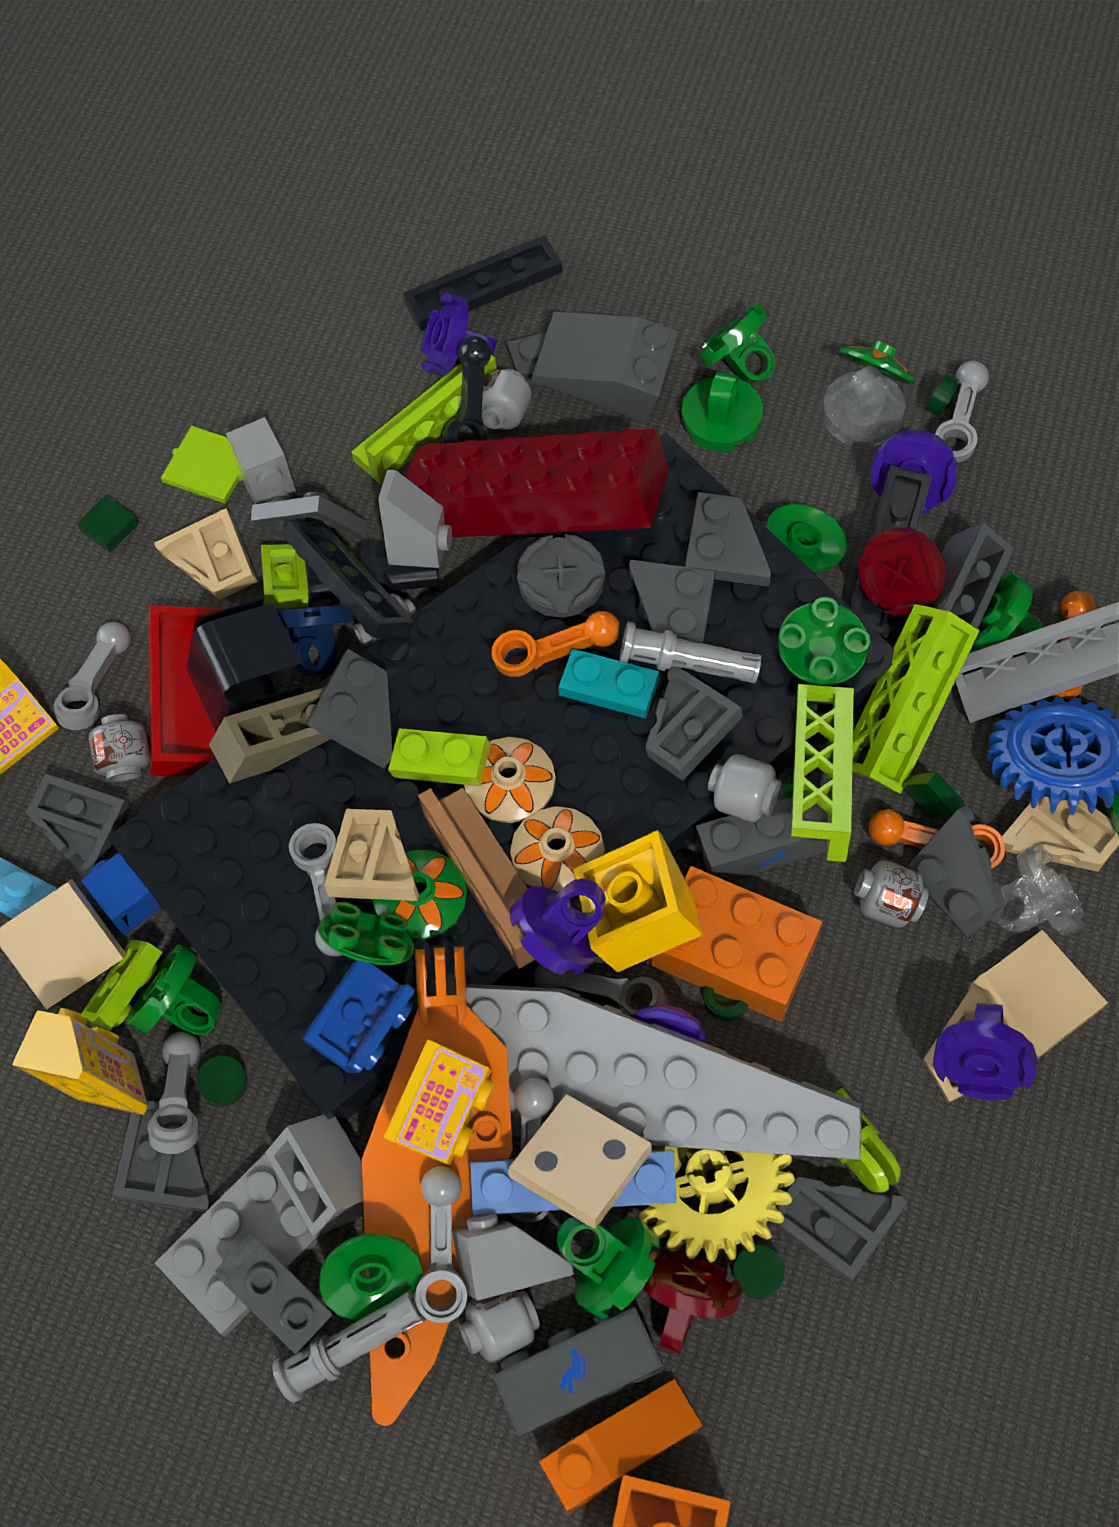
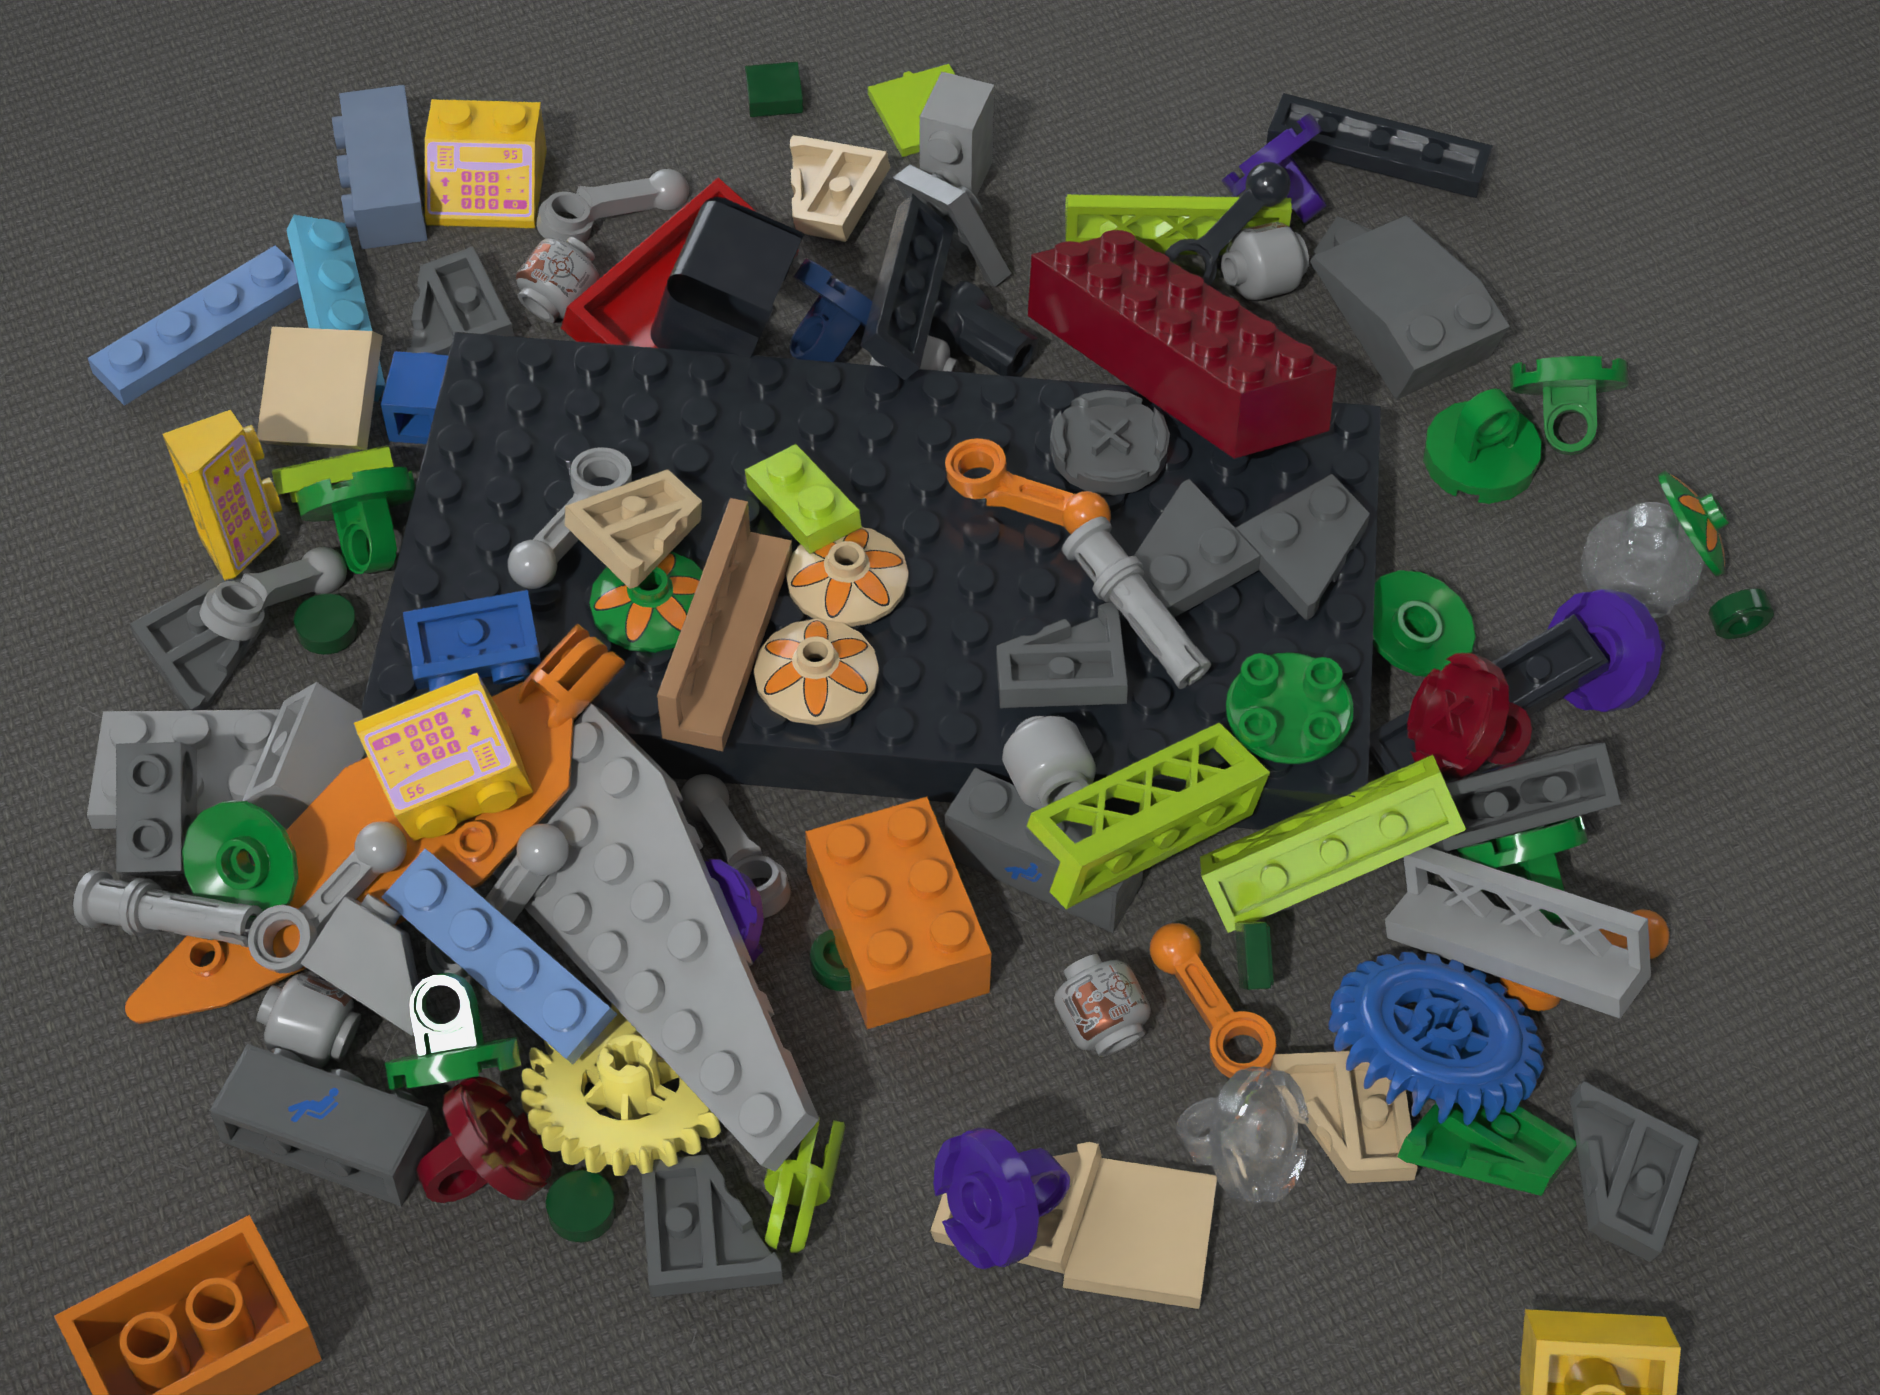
camera: 40 degrees right, 10 degrees down
(266, 736) = (691, 358): dark tan slope -> none
(284, 577) = (858, 252): lime plate -> none
(356, 709) = (776, 392): dark grey wing -> none
(366, 936) = (550, 576): green dish -> none
(412, 524) = (1021, 281): light grey slope -> none
(557, 927) = (724, 717): dark purple tile -> none
(580, 1161) = (514, 928): tan tile -> none
(608, 683) = (1038, 570): teal plate -> none
(620, 1445) = (293, 1213): orange slope -> none
(645, 903) = (822, 768): yellow slope -> none
(960, 874) = (1186, 1045): dark grey wing -> none
(973, 379) = (1794, 626): light grey piece -> none

